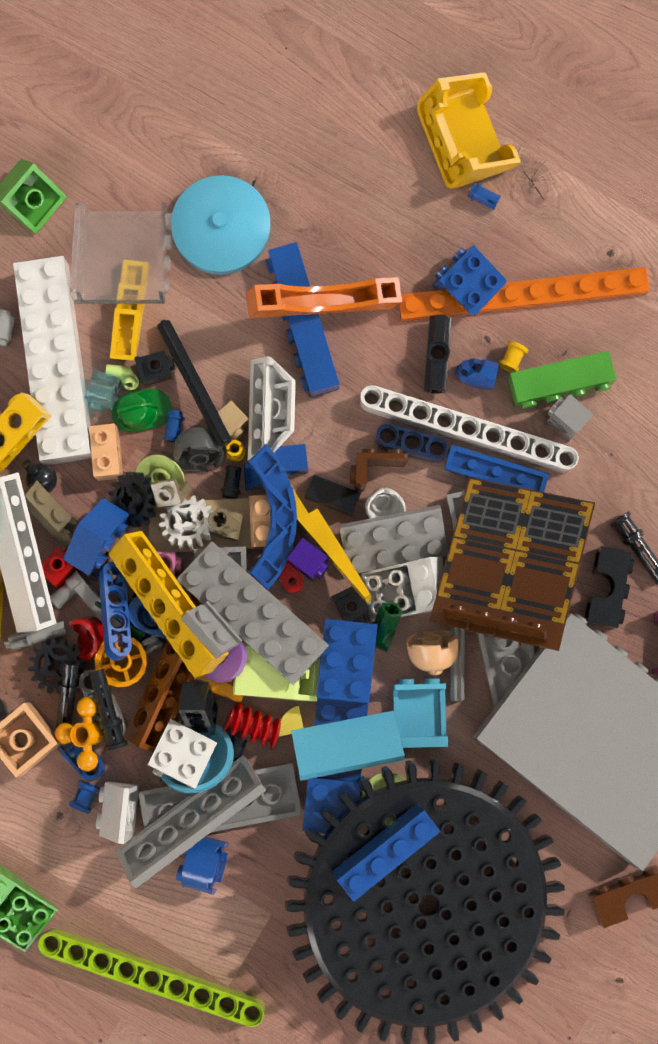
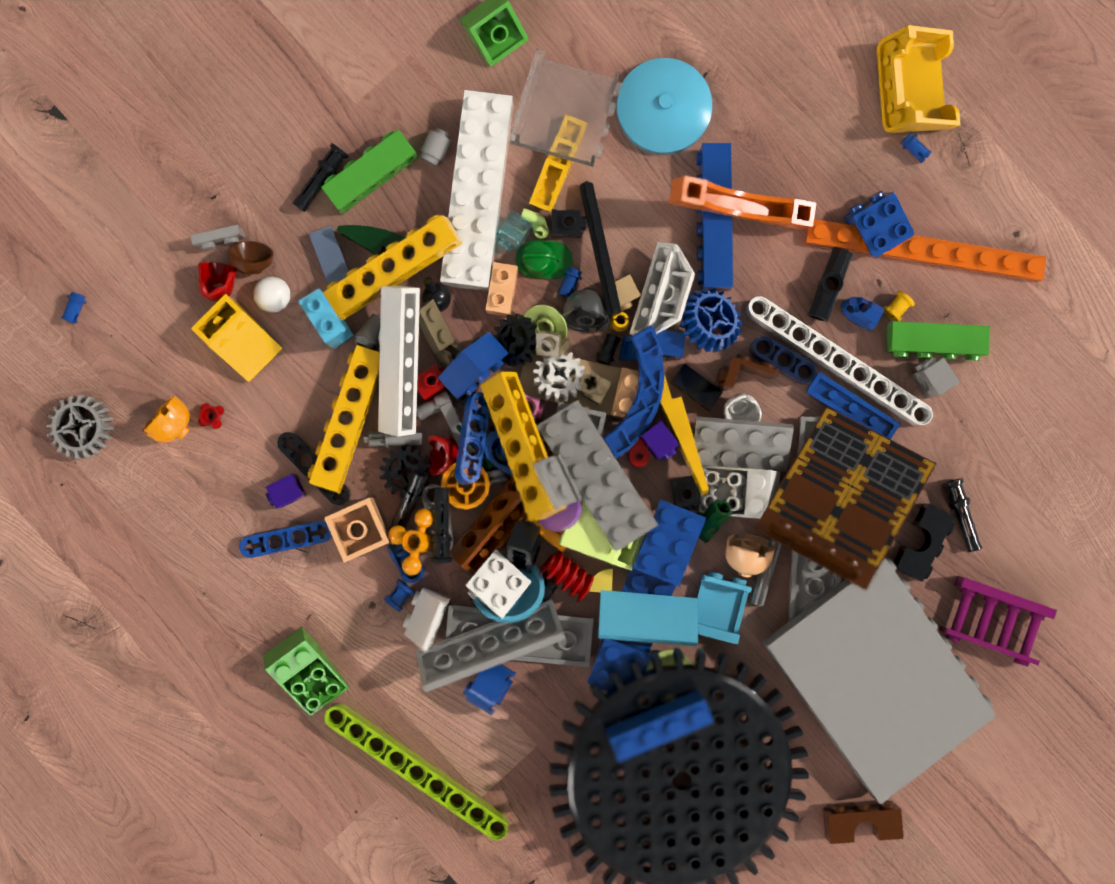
camera: 15 degrees right, 5 degrees up
(321, 419) = (703, 321): none -> blue gear

